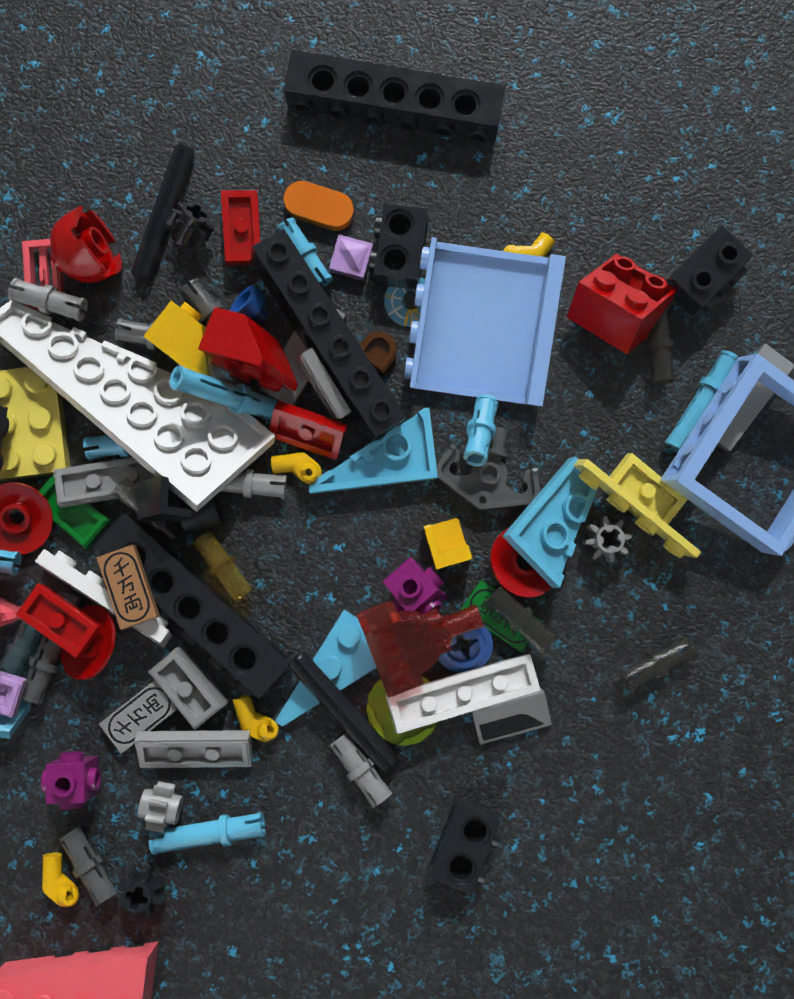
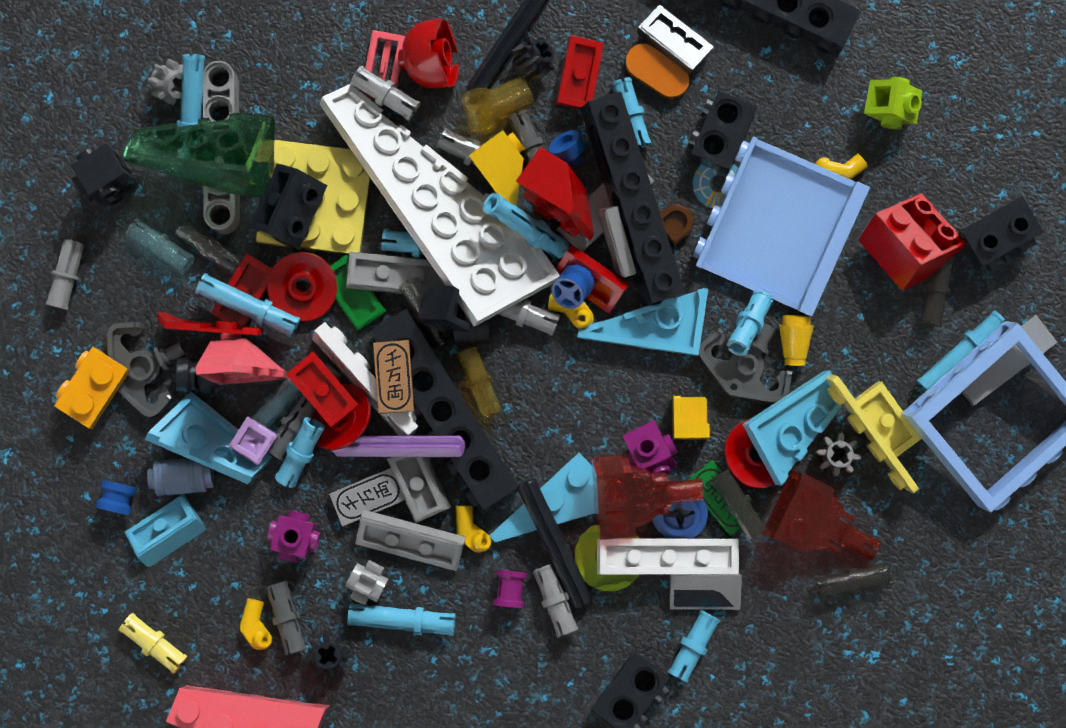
camera: 15 degrees right, 0 degrees up
(55, 690) = (299, 452): none -> medium azure pin
(156, 285) = (486, 107): none -> clear yellow piece
(160, 655) = (404, 446): none -> medium lavender axle
(290, 442) = (571, 295): none -> blue wheel
(310, 771) = (510, 588): none -> magenta bush
(327, 168) = (674, 39): none -> plate
(351, 257) = (674, 128): lavender tile -> none
(515, 776) = (694, 646): none -> medium azure pin
(531, 433) = (795, 338): none -> yellow cone
(563, 169) = (893, 102): none -> lime brick
(597, 611) = (810, 517): none -> clear red brick

